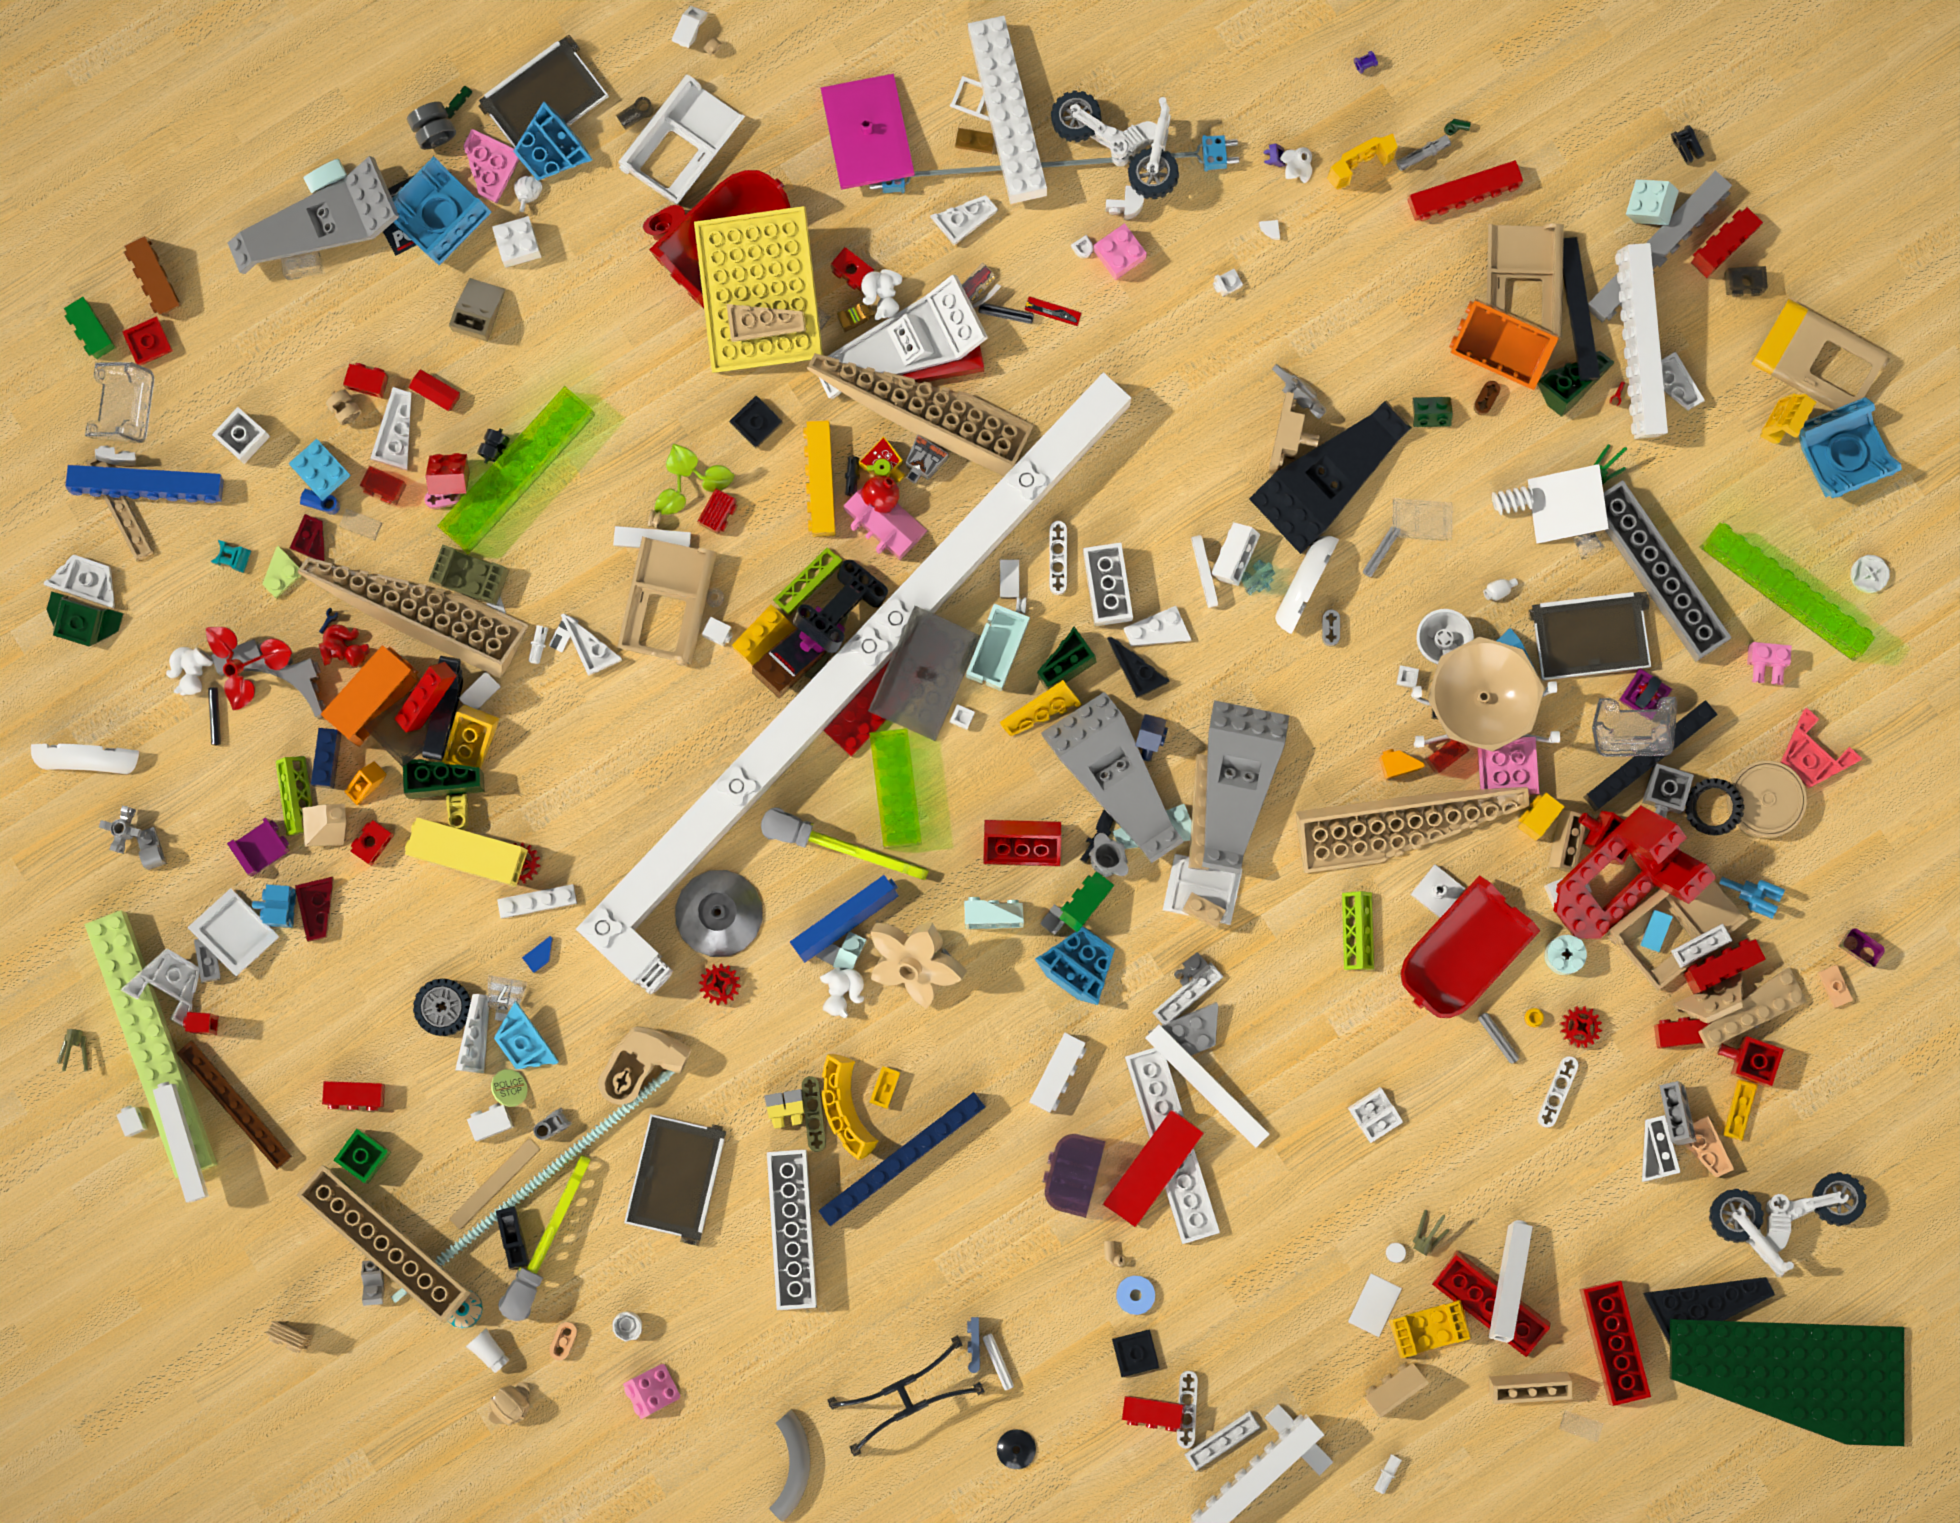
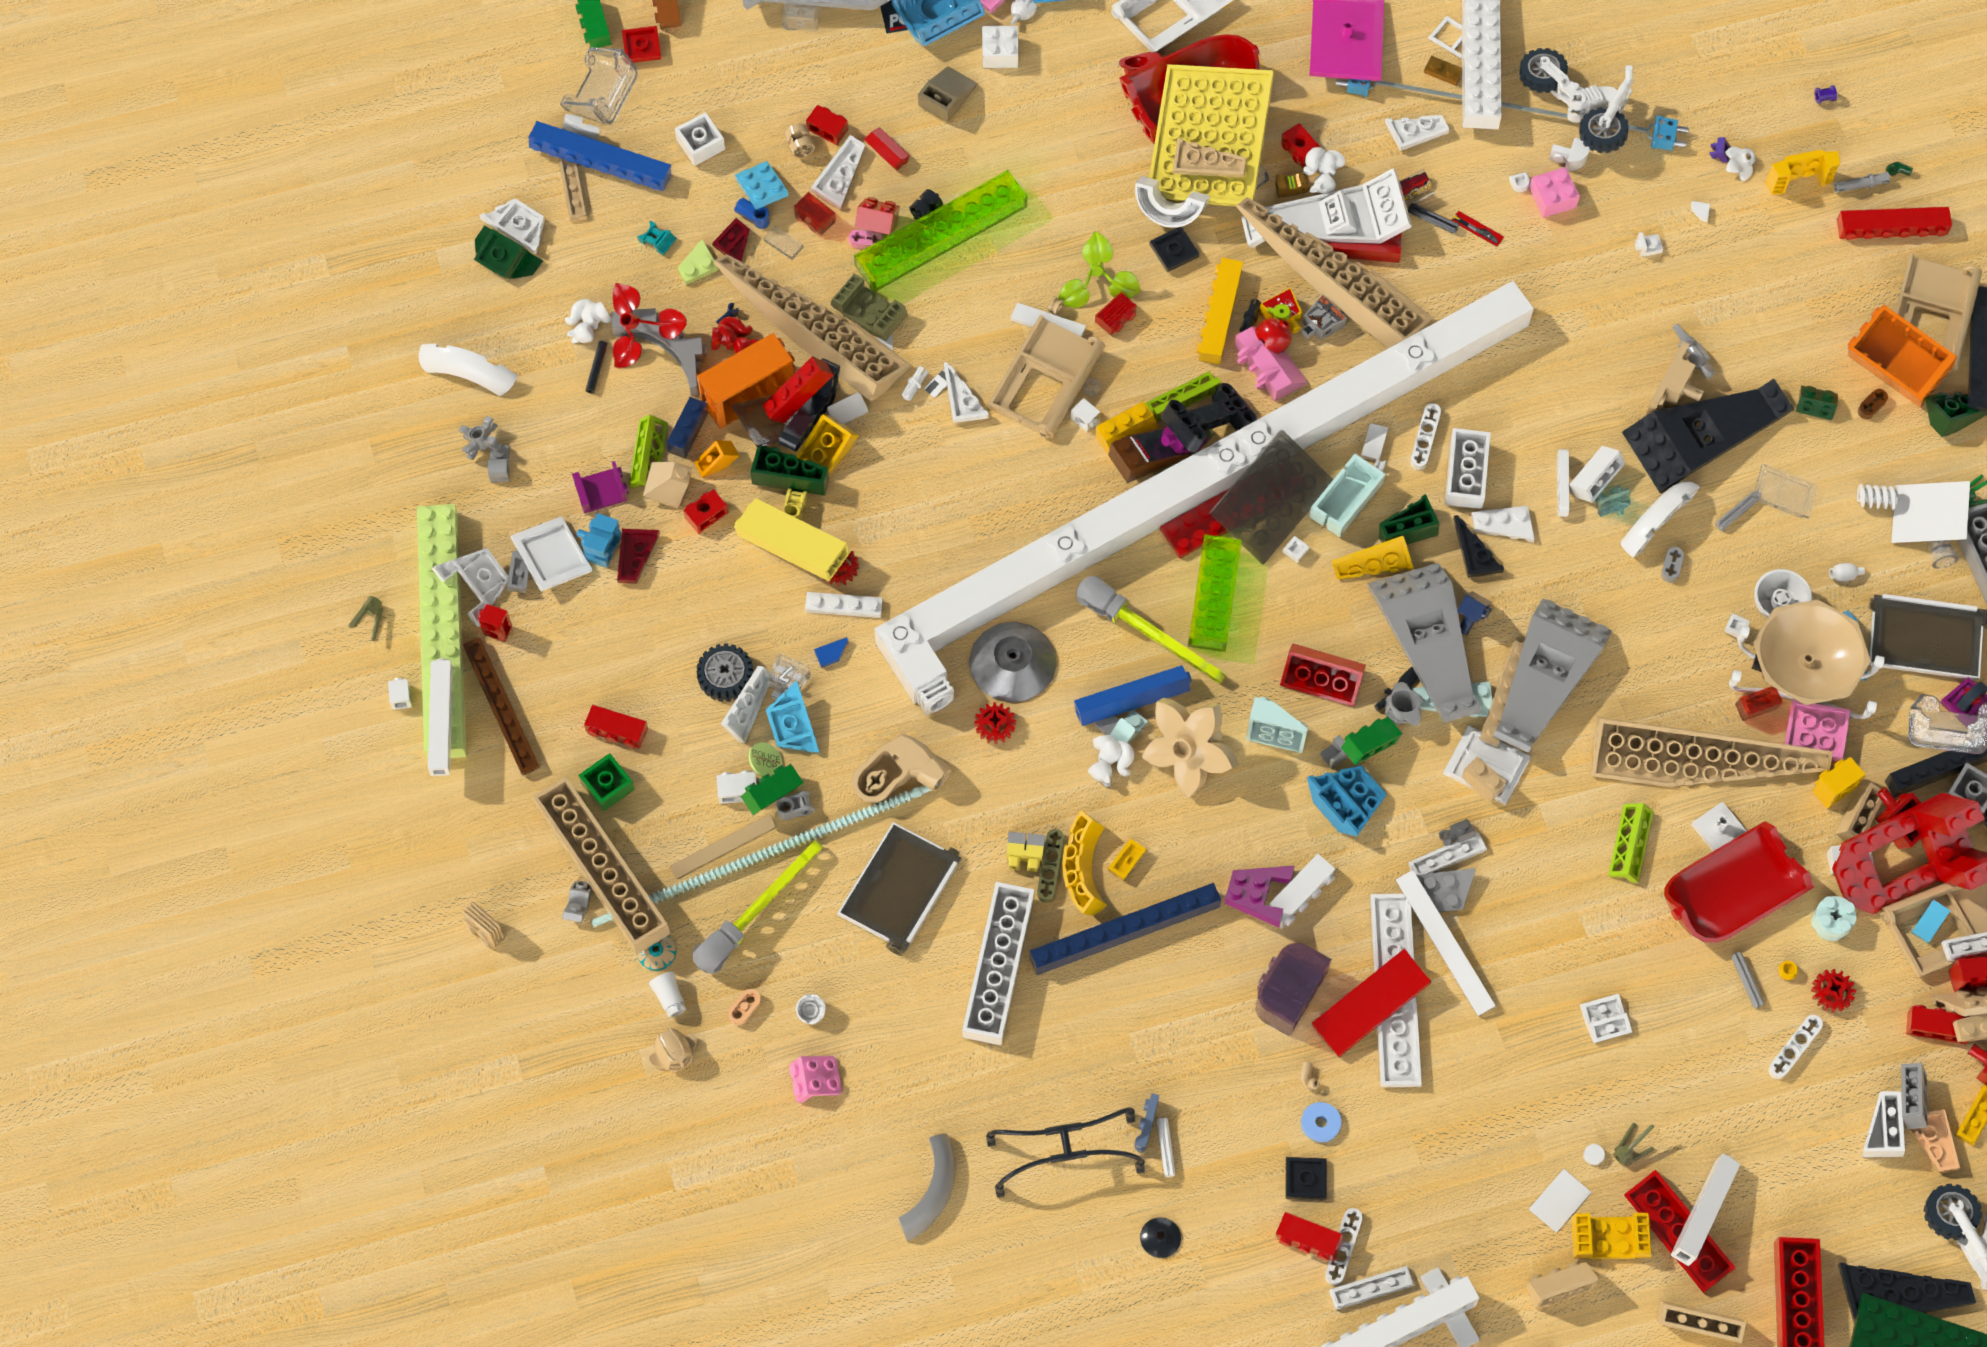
camera: 15 degrees right, 15 degrees down
(512, 1238) = (725, 895): black slope -> none
(524, 1118) = (771, 788): none -> green brick
(733, 384) = (1163, 211): none -> white brick
(1010, 1086) = (1250, 889): none -> magenta wing
(1398, 763) = (1709, 701): light orange slope -> none

